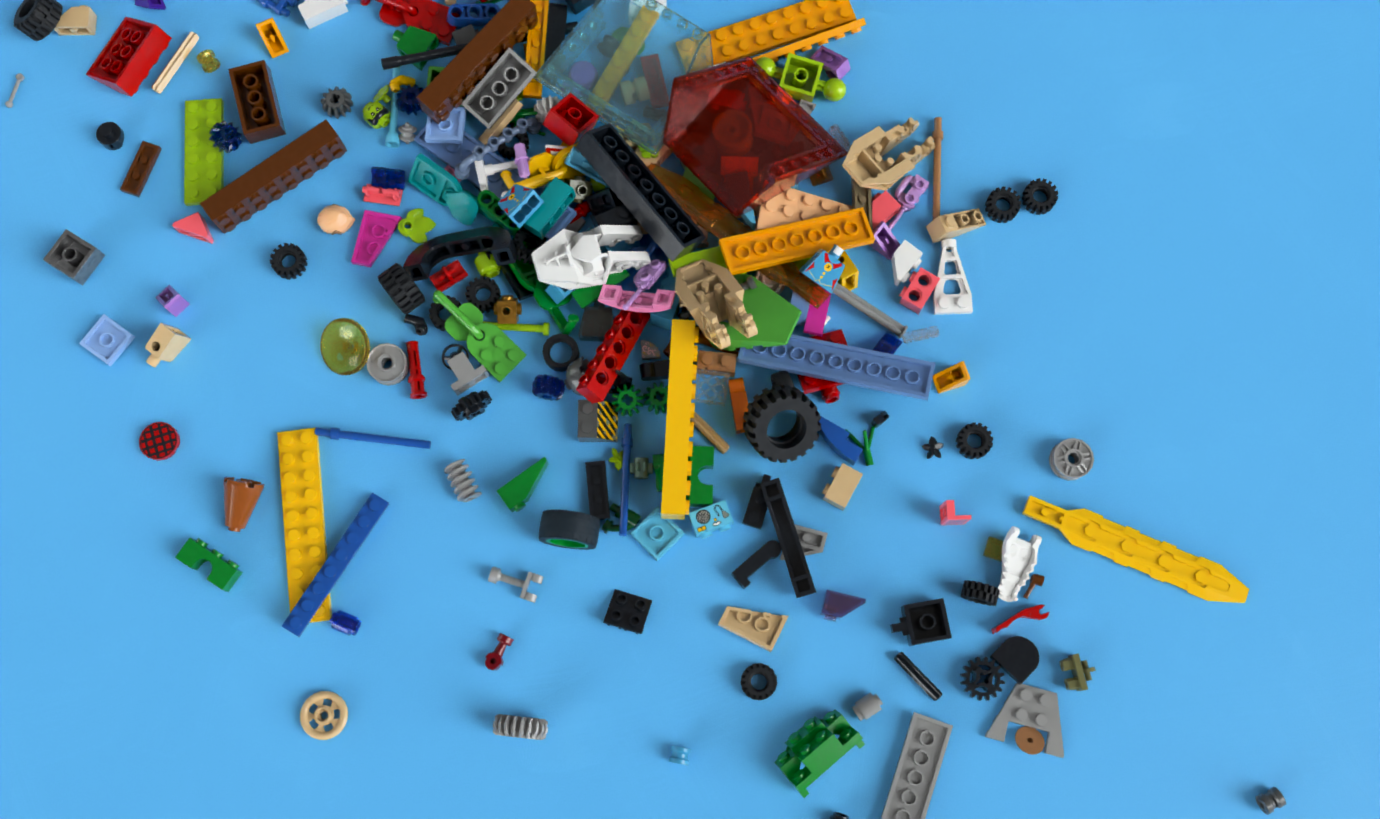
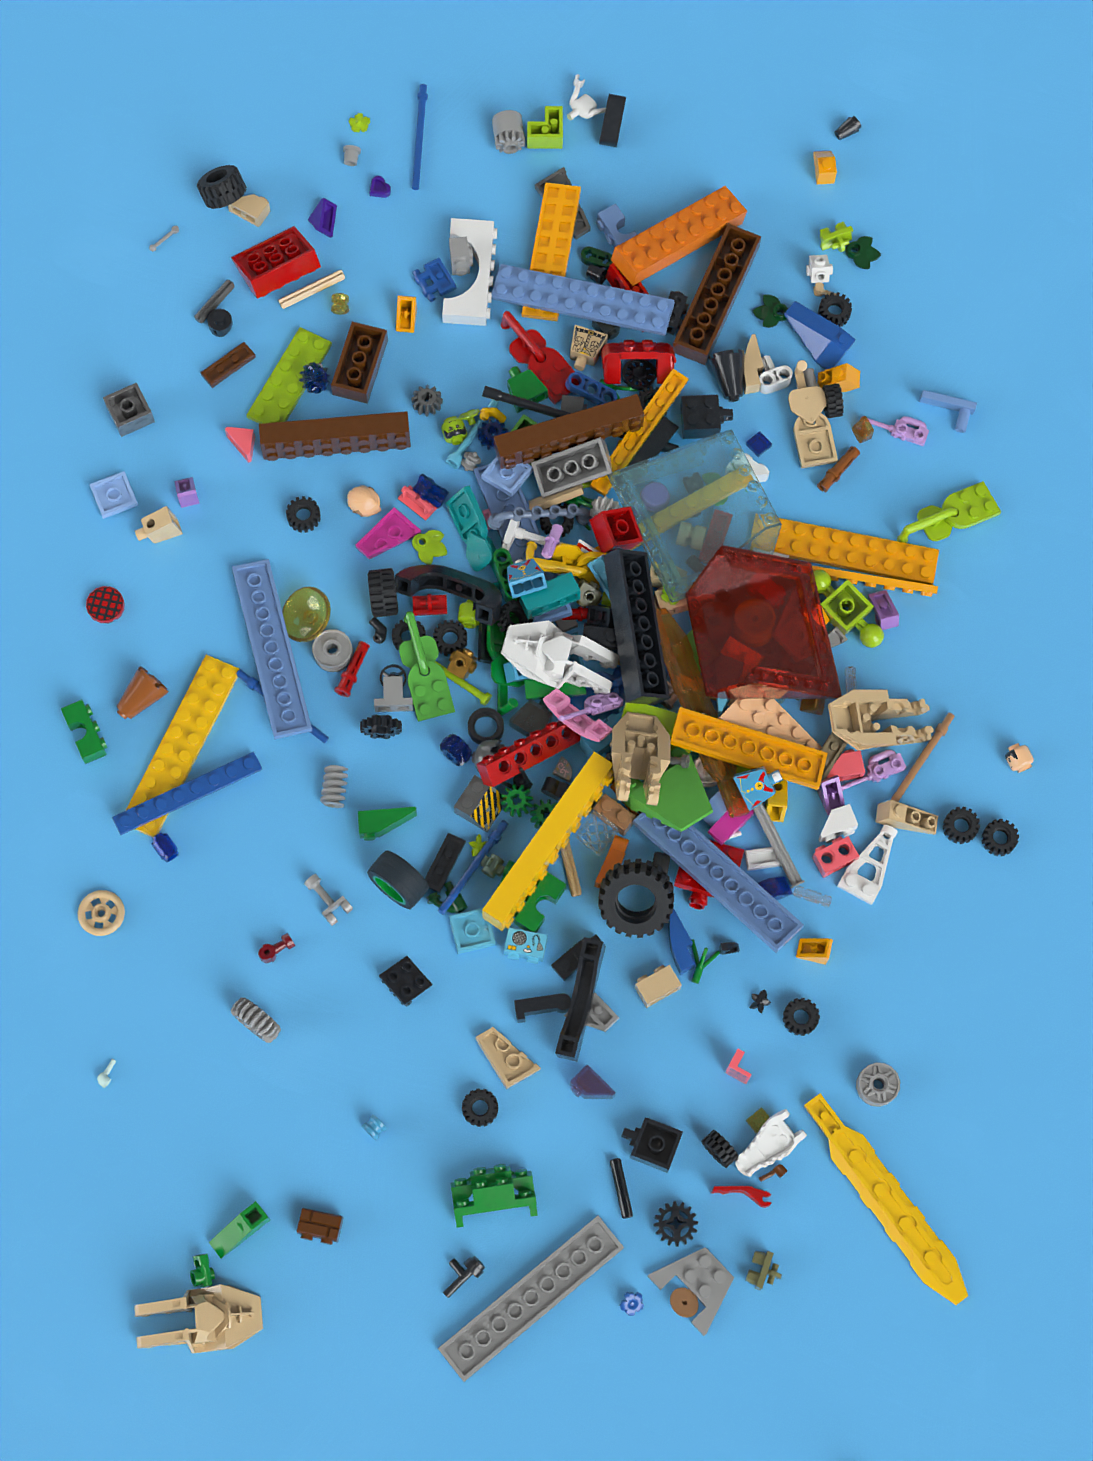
camera: 30 degrees right, 5 degrees down
(94, 120) = (214, 301): none -> dark grey axle
(333, 394) = (271, 649): none -> medium blue plate
(859, 328) = (761, 859): none -> white tile
(867, 706) = (560, 1186): light grey brick -> none
(988, 768) = (632, 1303): none -> plant
(1014, 122) = (1019, 758): none -> light nougat head
(1017, 658) = (718, 1225): black tile -> none

